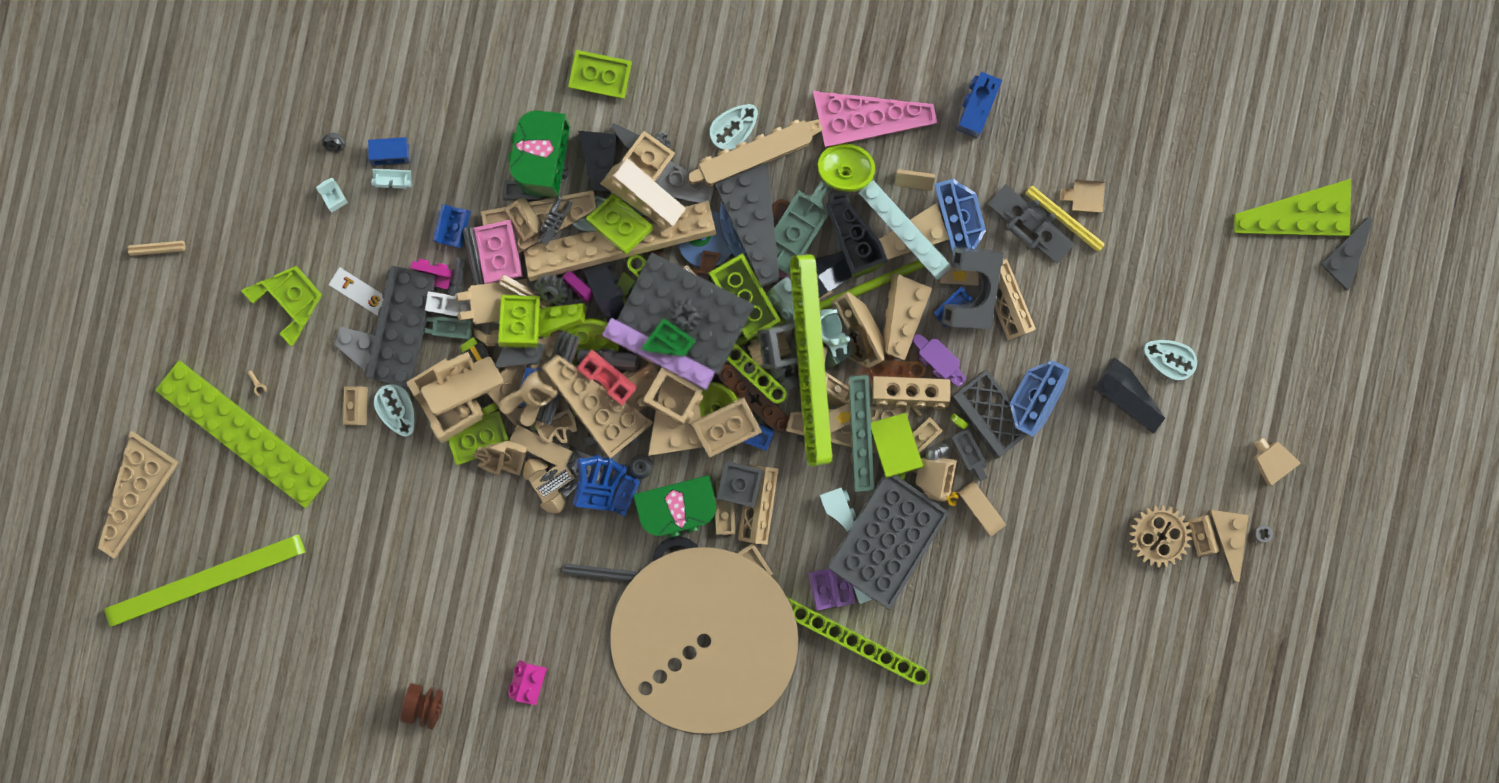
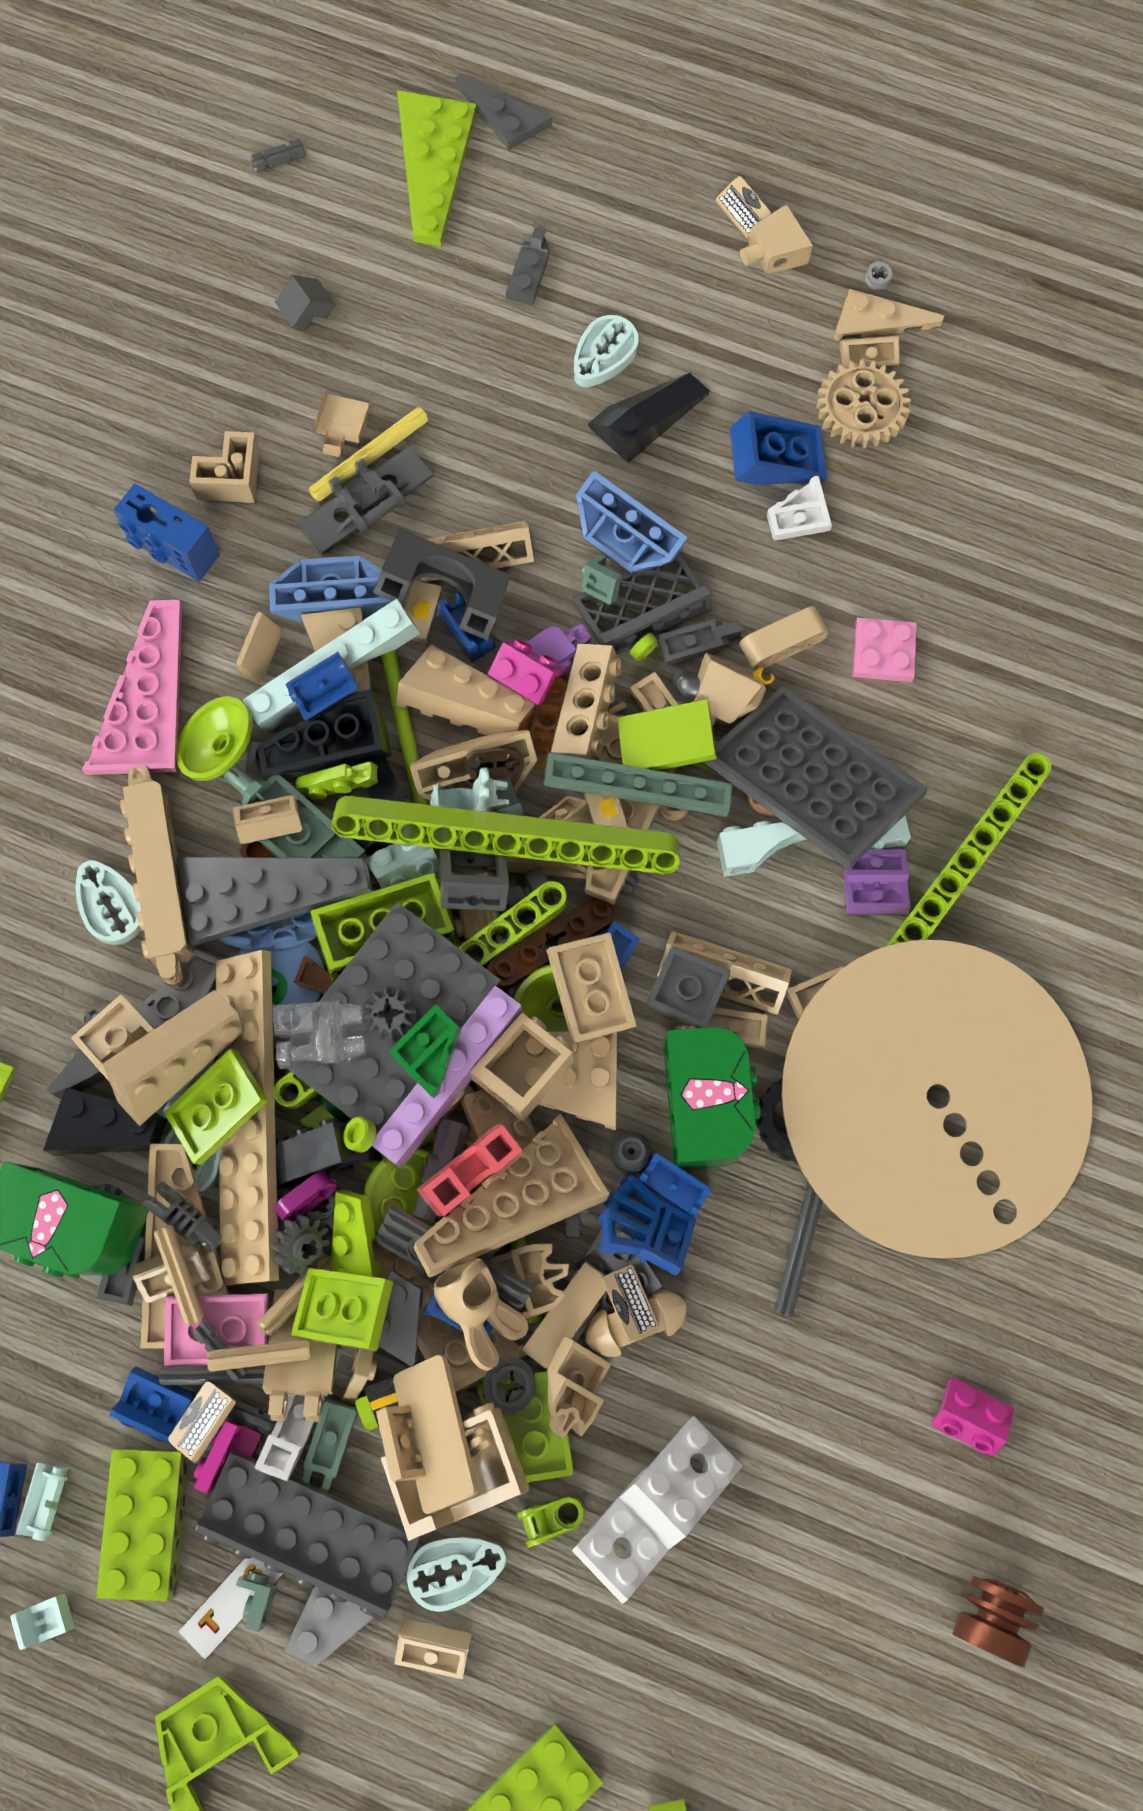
camera: 80 degrees left, 15 degrees down
(359, 307) = (259, 1605): none -> sand green bracket
(390, 236) = (143, 1525): none -> lime brick
(431, 455) = (549, 1519): none -> lime piece
(447, 256) = (201, 1421): none -> slope
(447, 514) = (657, 1509): none -> white bracket
(485, 258) = (205, 1334): none -> dark grey axle
(487, 280) = (258, 1355): none -> tan axle
(491, 426) = (516, 1398): none -> dark grey gear
(521, 226) = (178, 1275): none -> tan axle
(615, 311) = (359, 1134): none -> lime tile
(671, 280) = (327, 1031): none -> clear hips
(798, 213) = (267, 819): none -> tan slope
(831, 251) = (337, 780): none -> lime hinge
(885, 229) = (322, 685): none -> blue hinge
(924, 350) = (525, 670): none -> dark pink bracket
(987, 573) = (884, 649): none -> bright pink plate
(997, 385) = (600, 580): none -> sand green bracket
(1028, 136) = (230, 476): none -> tan brick
(1073, 506) = (800, 513): none -> white wing
(1114, 485) = (776, 450): none -> blue slope
(1168, 152) = (303, 300): none -> dark grey piece
(1224, 296) = (529, 269): none -> dark grey hinge
(1282, 107) = (277, 155): none -> dark grey axle
(1299, 434) = (742, 205): none -> slope

